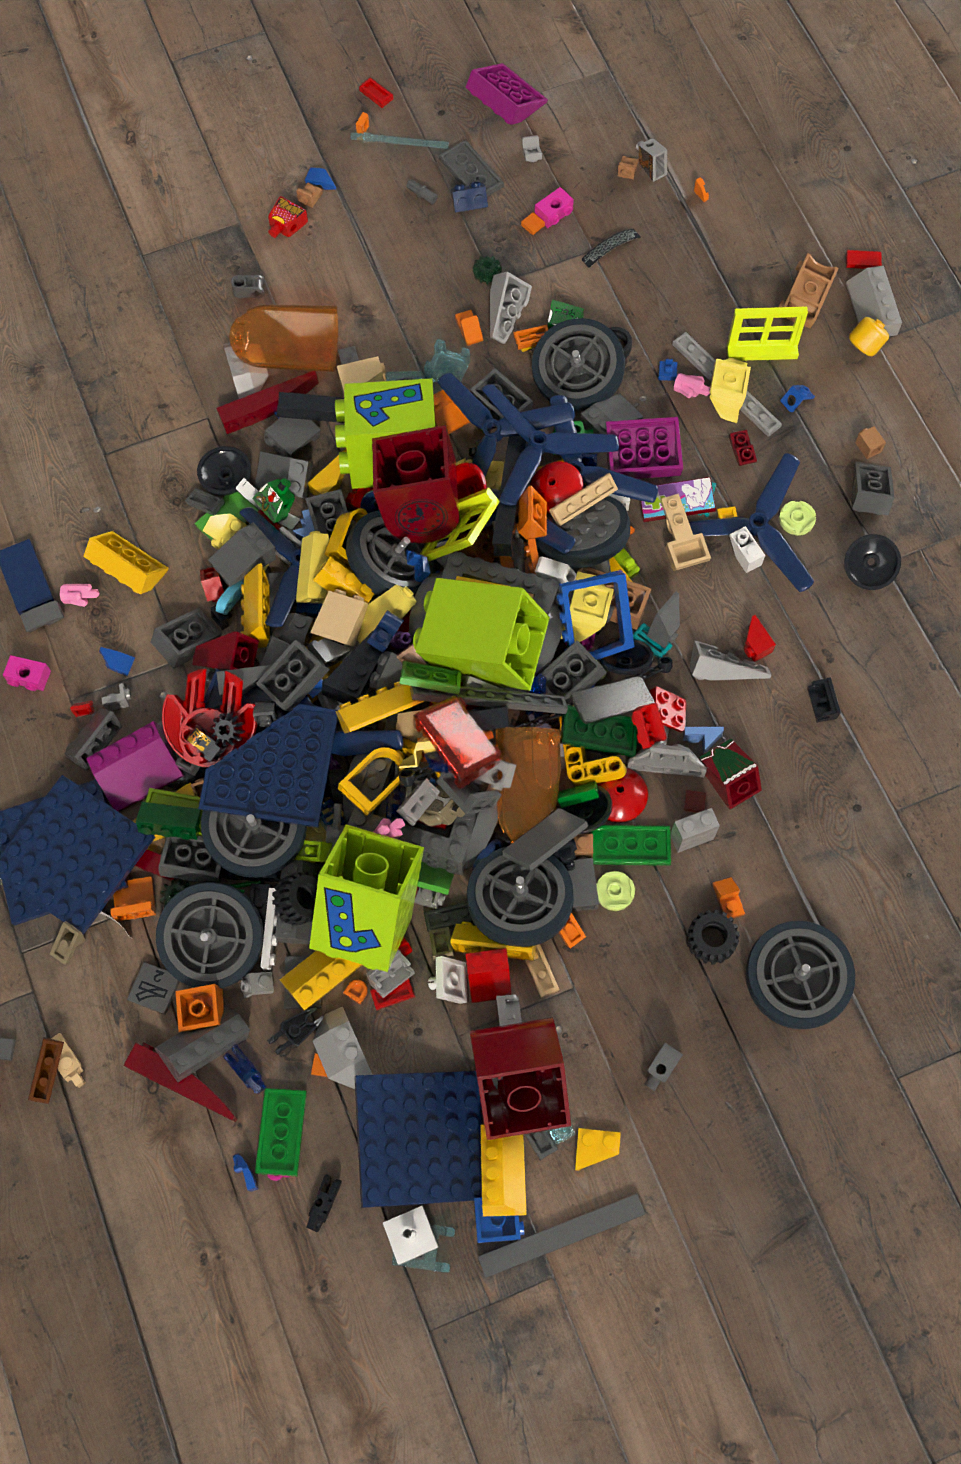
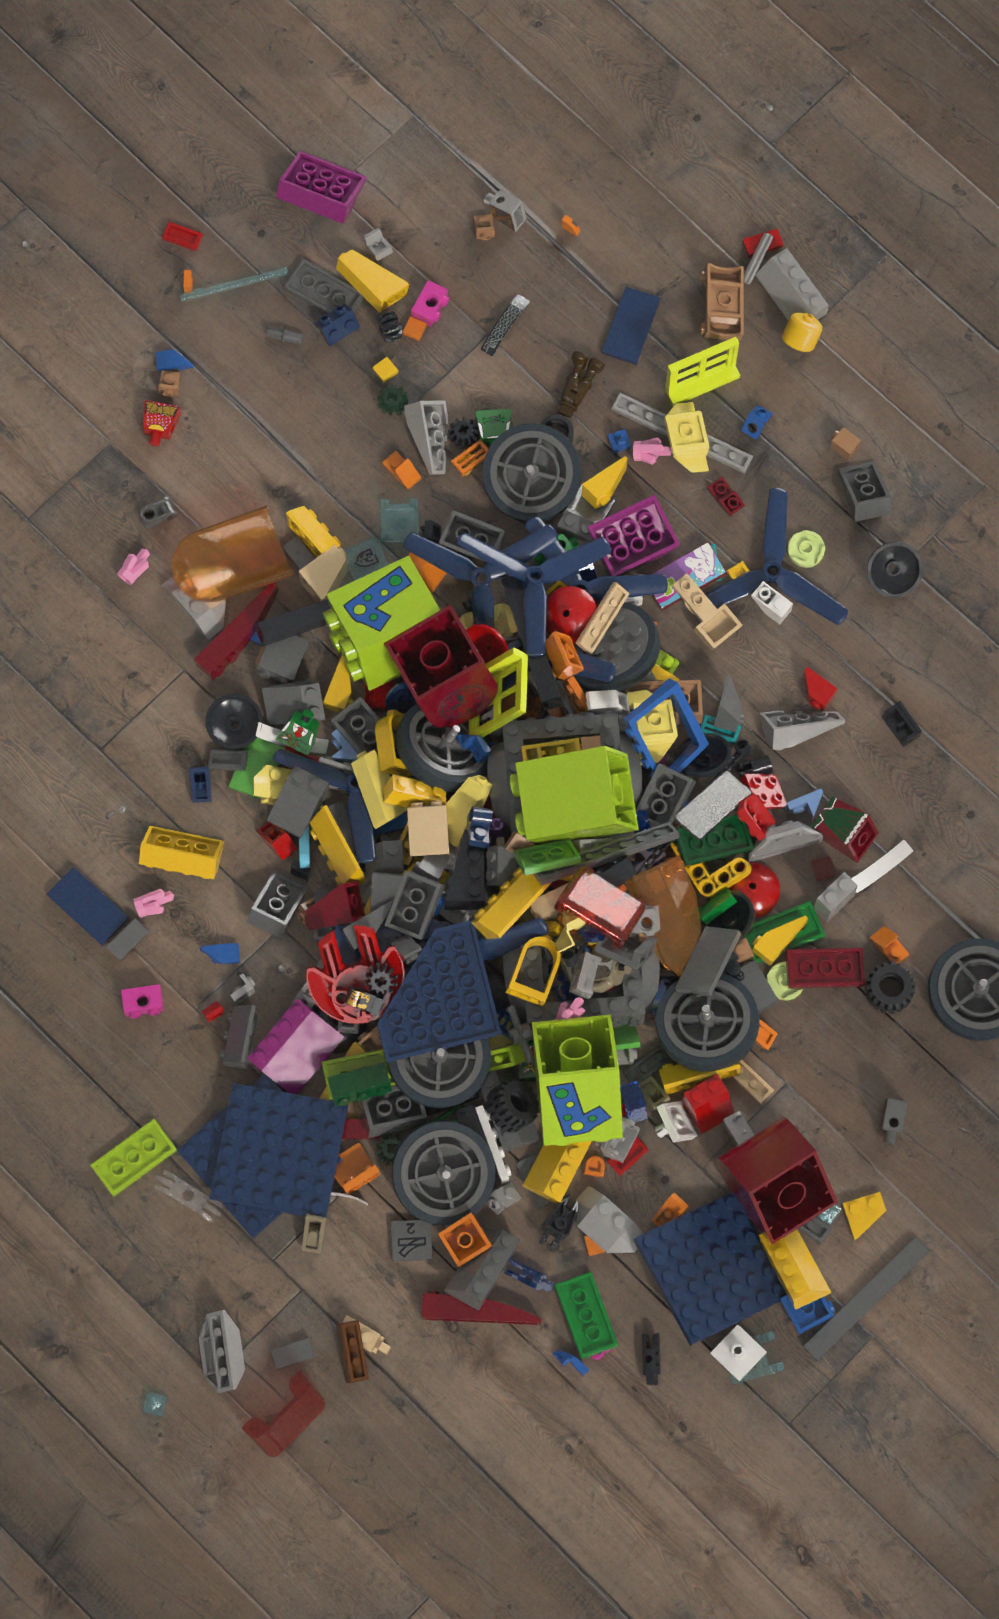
camera: 25 degrees left, 5 degrees up
(171, 511) = (200, 784): none -> dark blue slope
(206, 320) = (134, 566): none -> bright pink rock
(366, 340) = (310, 531): none -> yellow slope
(407, 1063) = (671, 1209): none -> orange slope
(419, 944) = (633, 1101): none -> clear blue slope
(470, 380) = (431, 531): none -> black tile
(493, 246) = (385, 369): none -> yellow tile
(511, 211) = (389, 326): none -> black gear
(514, 174) = (371, 280): none -> yellow slope
(535, 314) = (466, 426): none -> black gear
(621, 848) = (776, 940): none -> yellow slope
(637, 397) = (602, 486): none -> yellow slope
(649, 315) = (577, 388): none -> dark brown piece
(657, 893) = (825, 968): none -> dark red tile
(673, 685) = (757, 766): none -> black hinge
(719, 284) = (631, 325): none -> dark blue tile
(752, 821) = (882, 866): none -> white sticker
(853, 268) = (757, 258): none -> light grey axle

